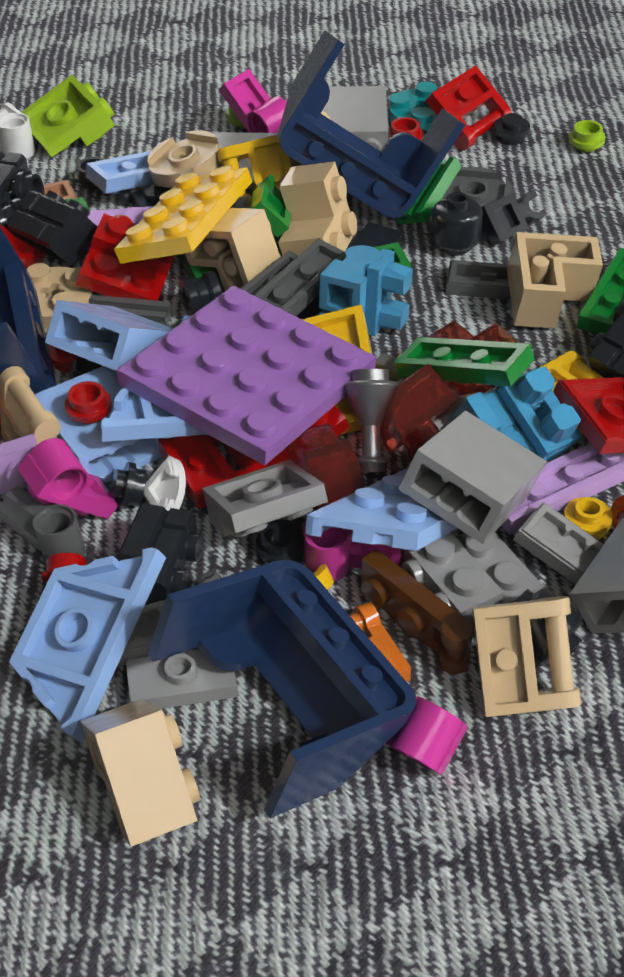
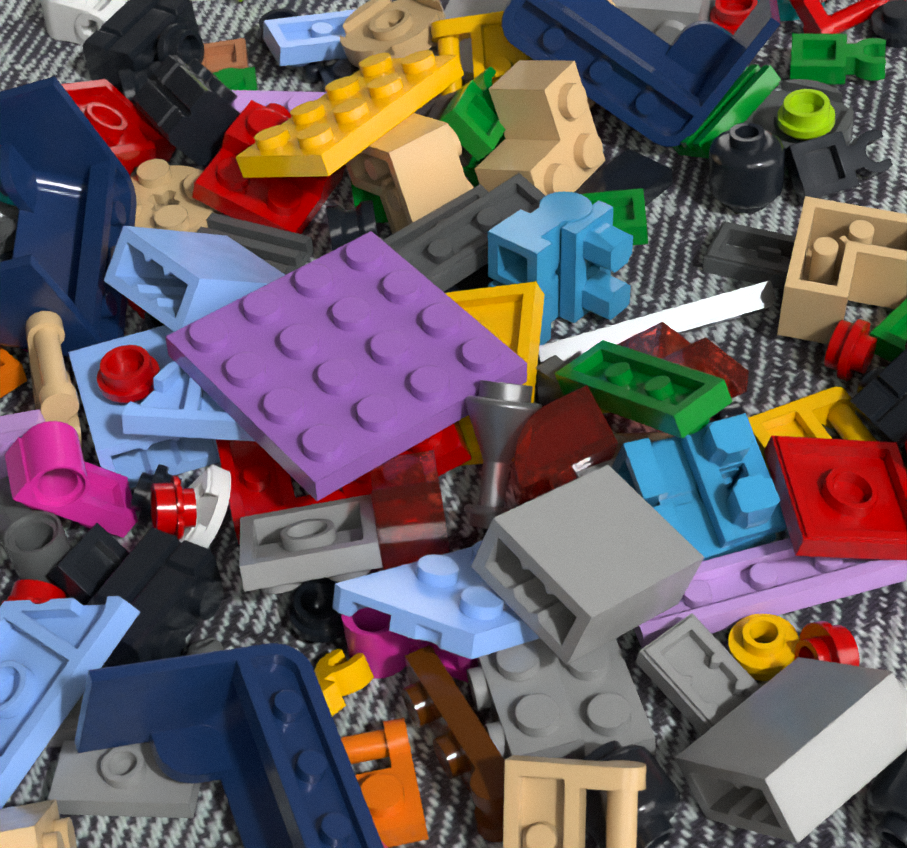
camera: 20 degrees right, 0 degrees up
(100, 536) = (89, 564): none -> black plate
(151, 487) = (173, 507): none -> red plate
(463, 316) = (680, 318): none -> tile
(480, 153) = (830, 58): none -> green plate
(485, 186) = (806, 114): none -> lime plate
(569, 327) = (850, 349): none -> red plate

